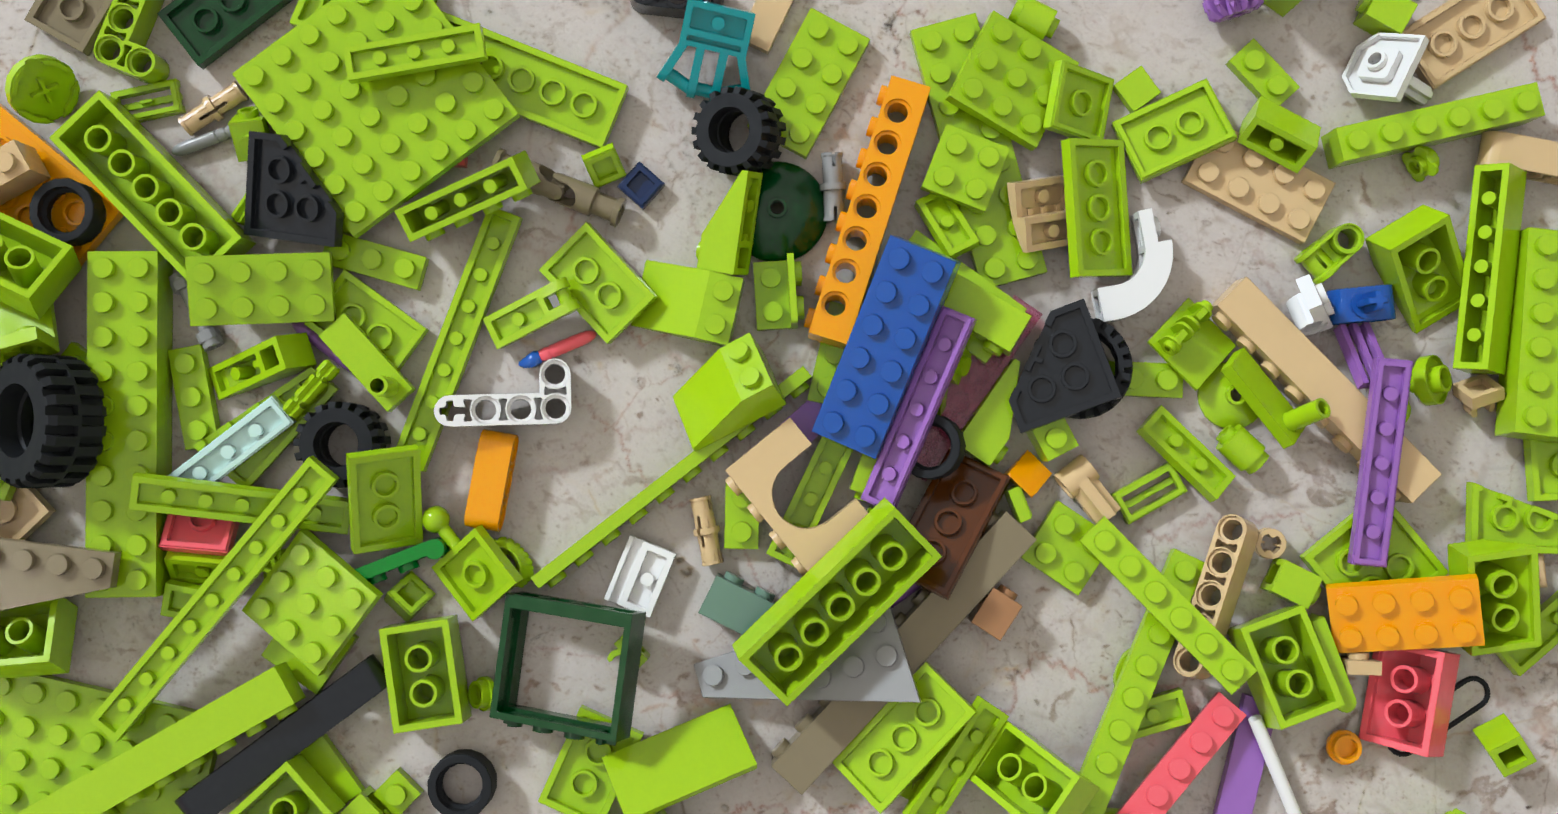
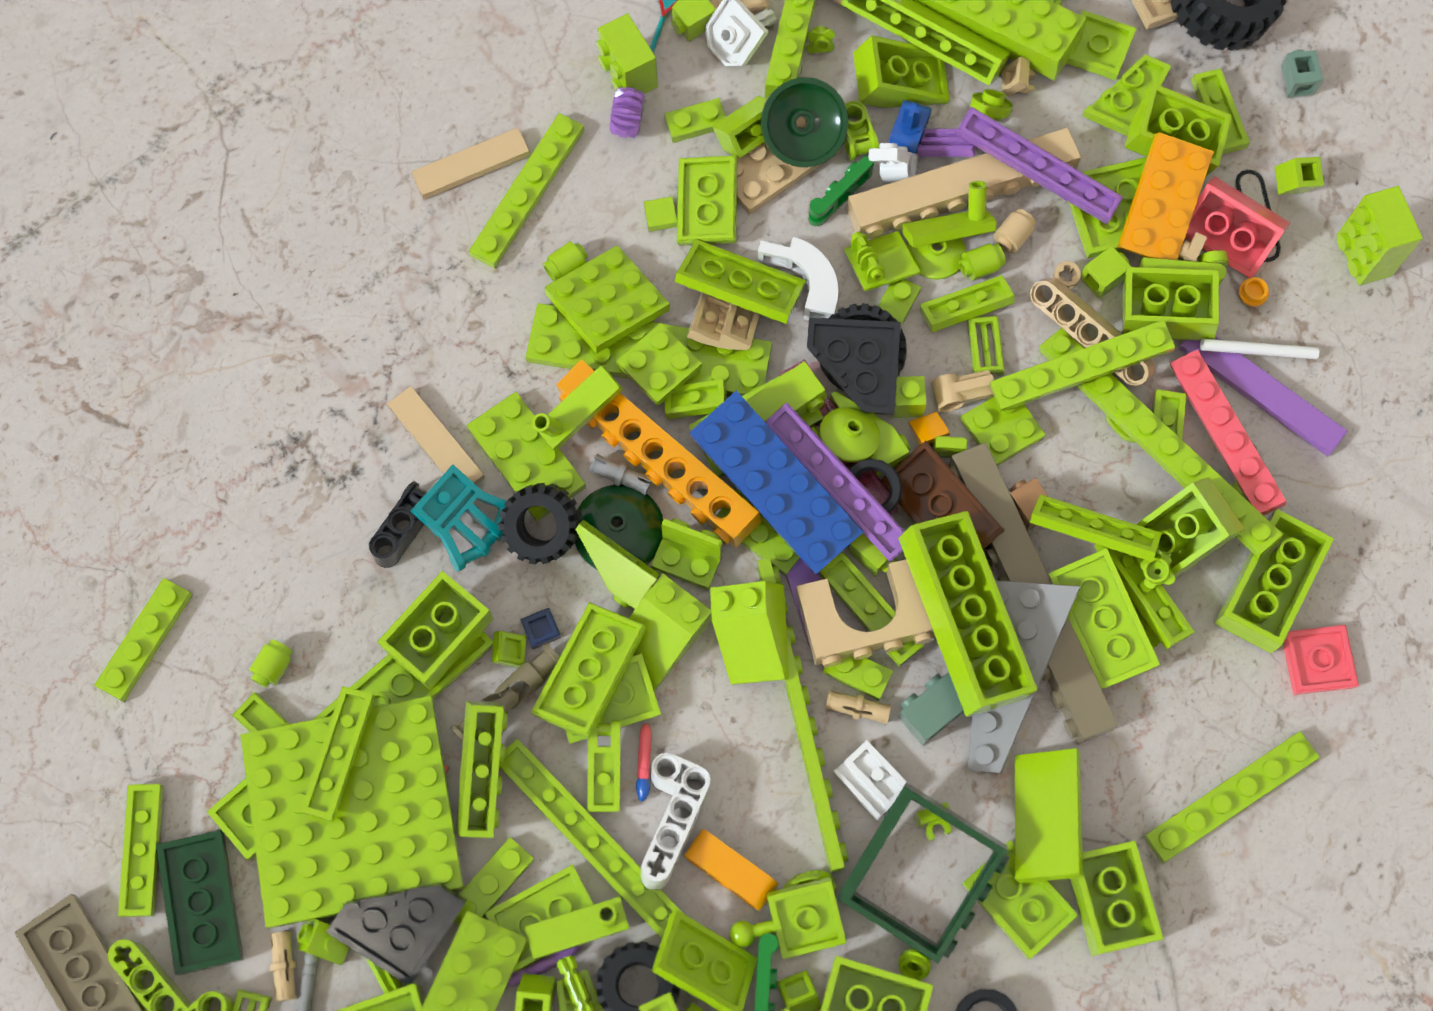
camera: 70 degrees left, 15 degrees down
(579, 84) = (435, 630): none -> lime brick
(612, 253) = (588, 670): none -> lime tile
(873, 108) = (577, 408): none -> lime piece
(963, 393) = (849, 444): none -> lime dish
(967, 768) = (1166, 575): none -> lime plate
(992, 692) = (1096, 527): none -> lime plate
(1078, 102) = (648, 258): lime tile -> none
(1250, 265) = (837, 192): none -> green plate
(1292, 468) = (1014, 231): none -> tan brick
(1306, 215) = (824, 118): none -> dark green dish
(1362, 693) = (1217, 256): none -> lime tile

